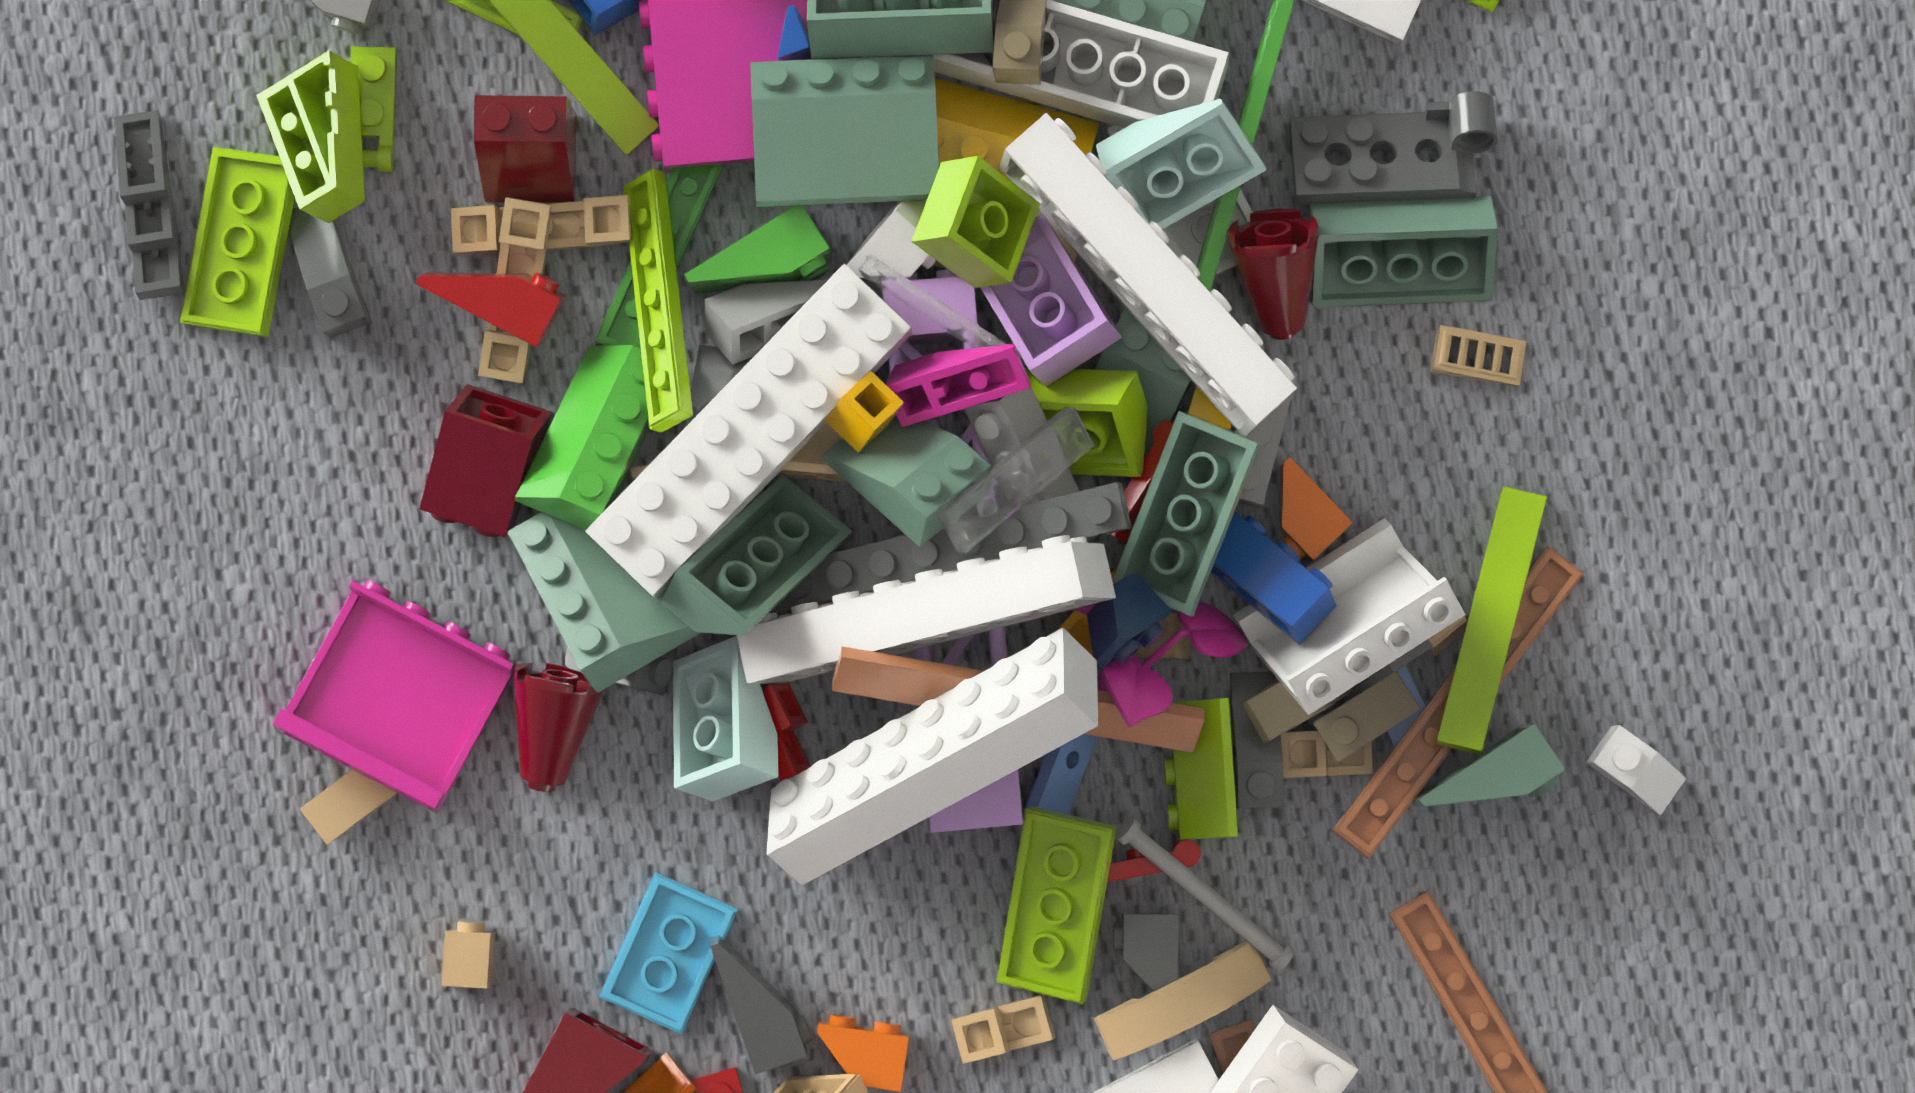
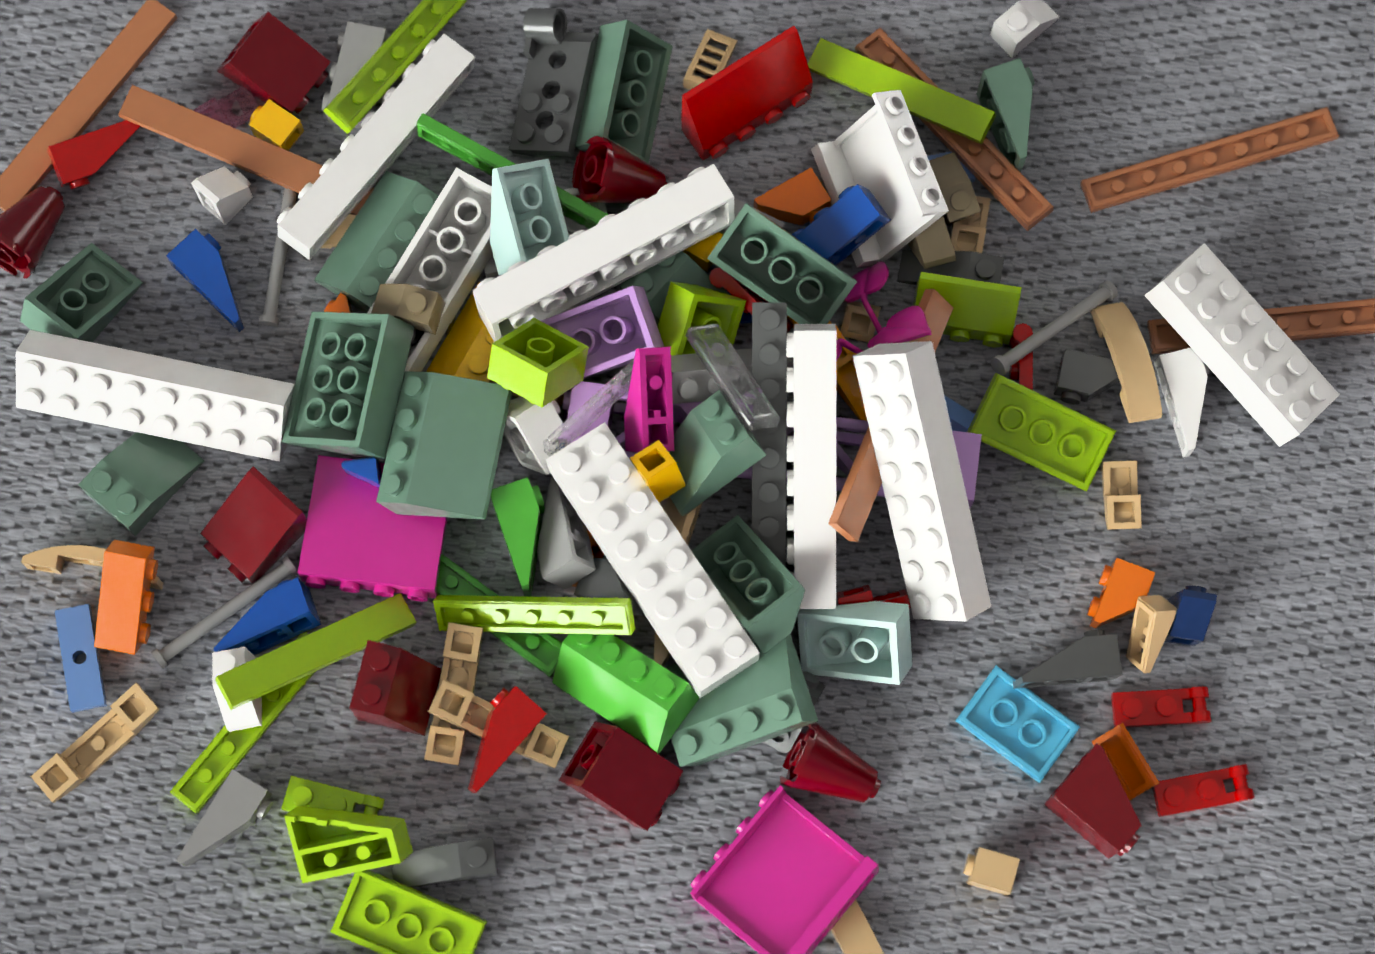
camera: 80 degrees left, 10 degrees down
(1126, 622) = (855, 326): dark blue slope -> none
(1429, 416) = (746, 95): none -> red slope

